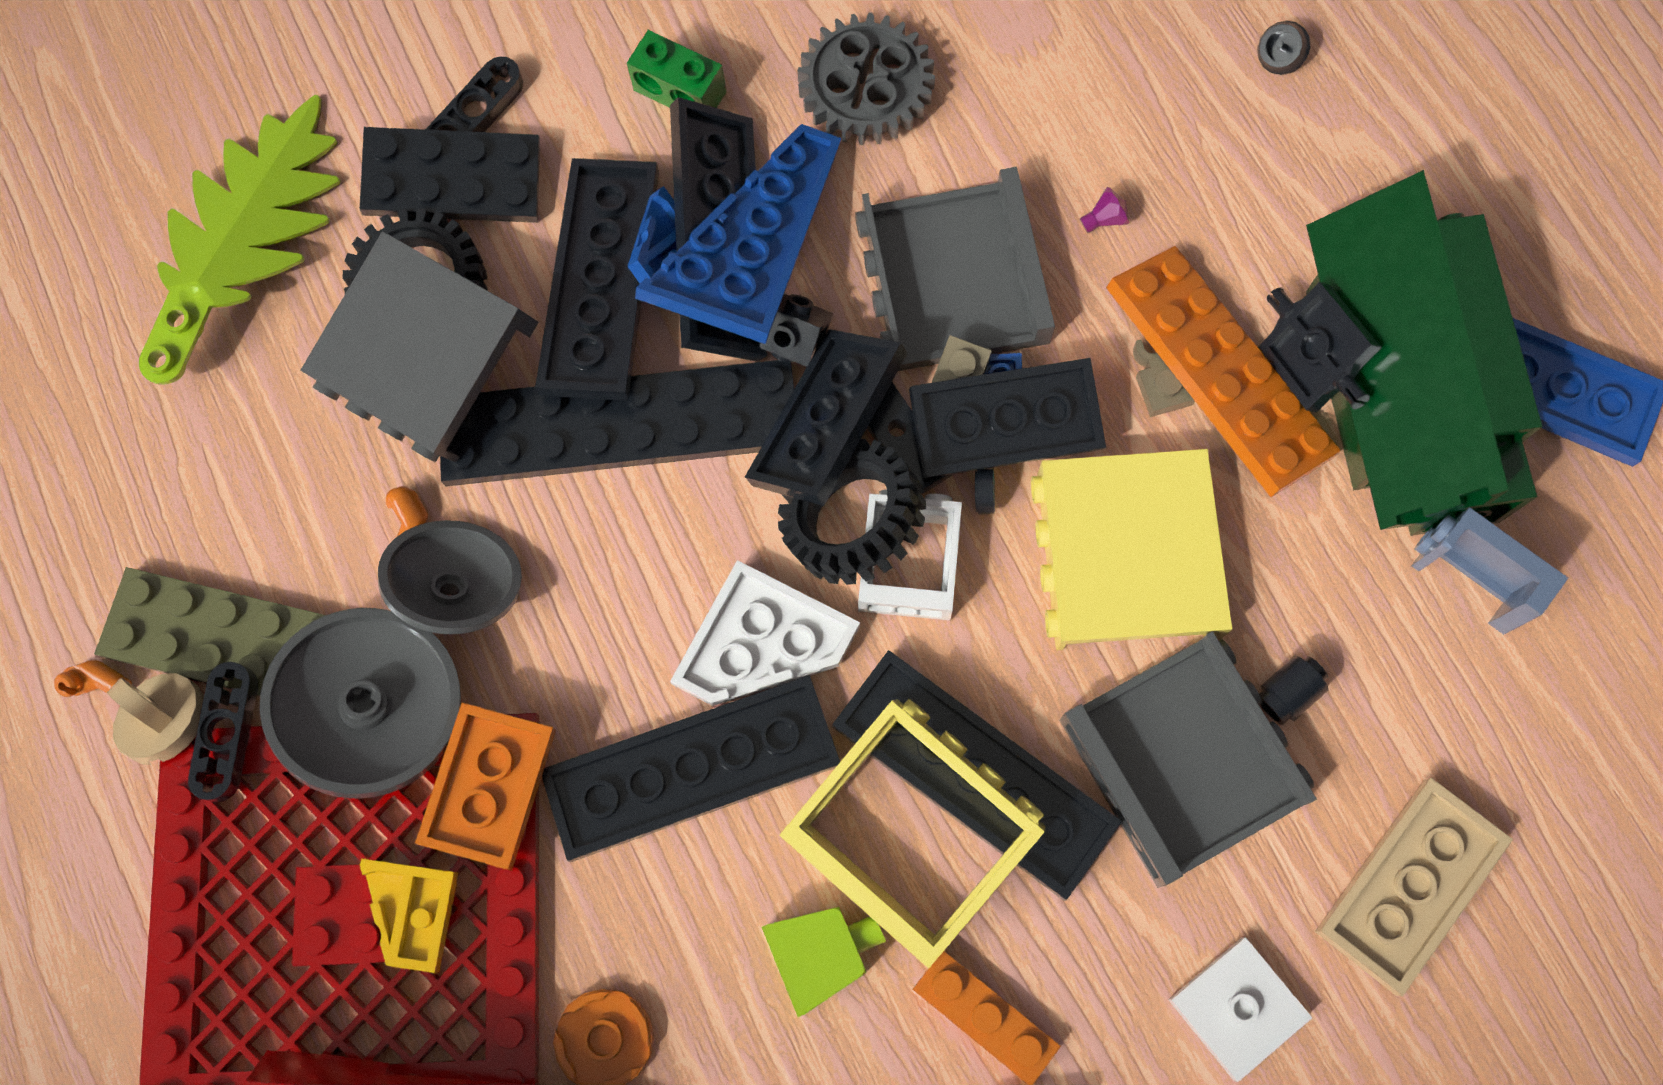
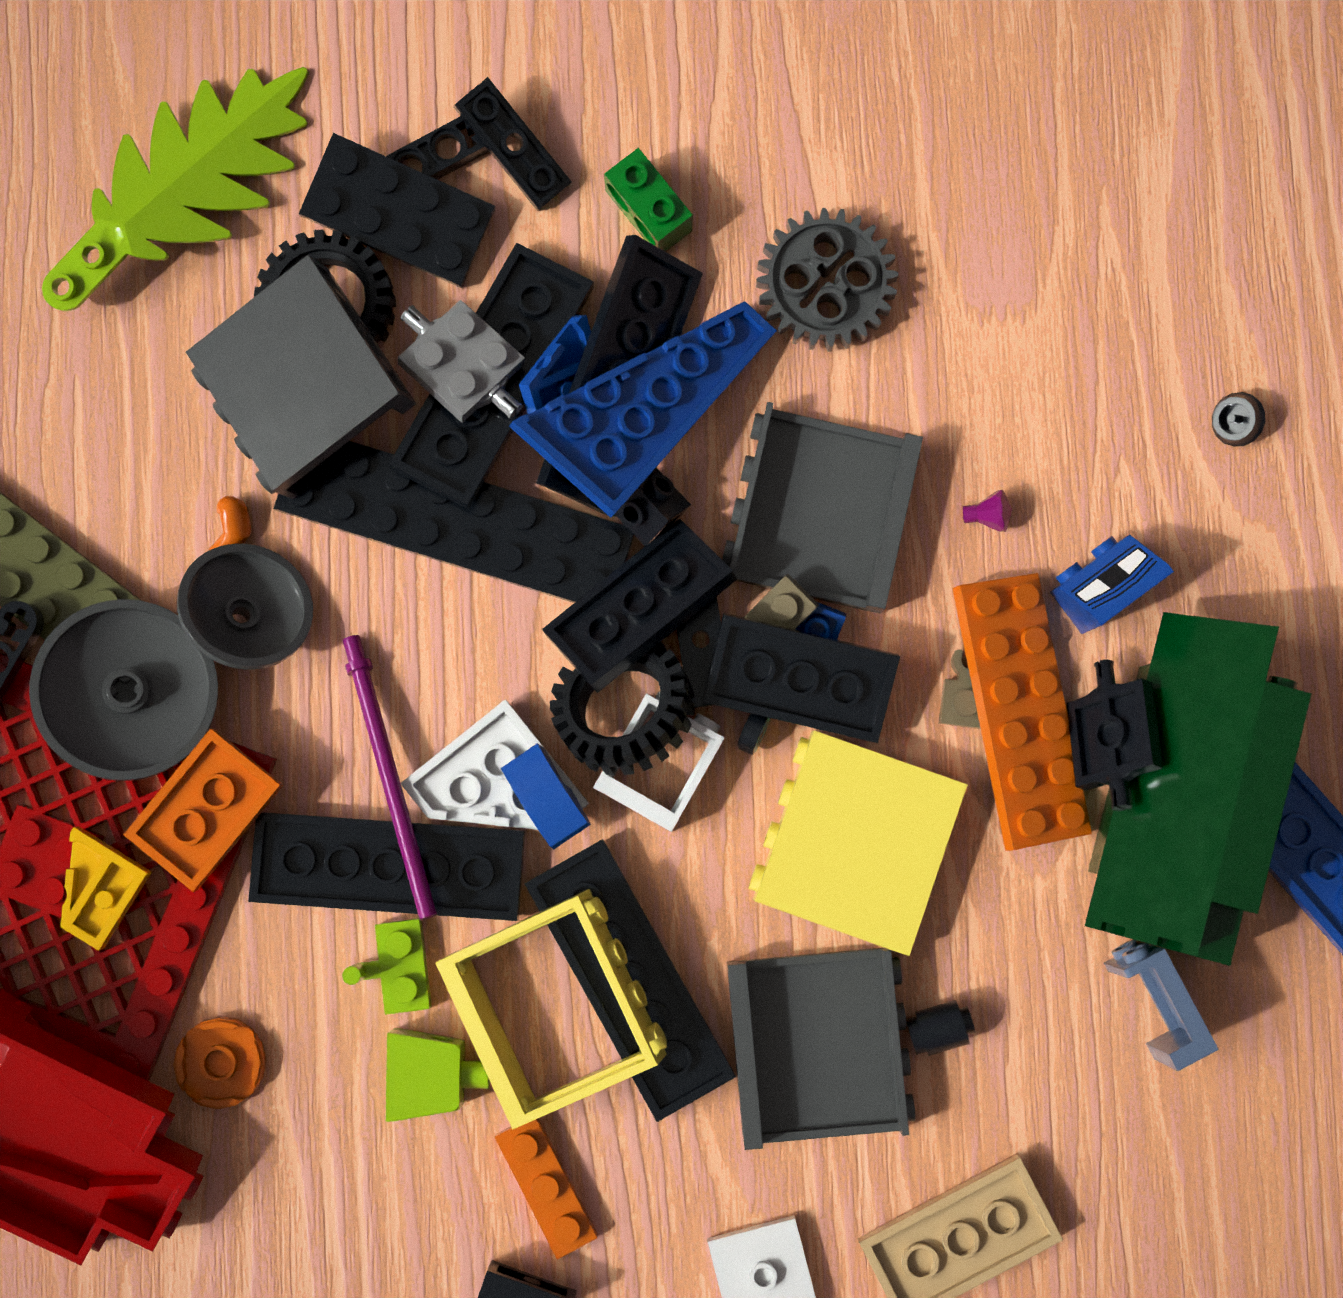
camera: 20 degrees right, 10 degrees up
(553, 92) = (495, 121): none -> black tile
(565, 270) = (461, 361): none -> light grey plate
(584, 593) = (359, 668): none -> magenta bar
(744, 862) = (400, 967): none -> lime plate
(817, 628) = (545, 796): none -> blue slope
(1242, 222) = (1109, 582): none -> blue slope

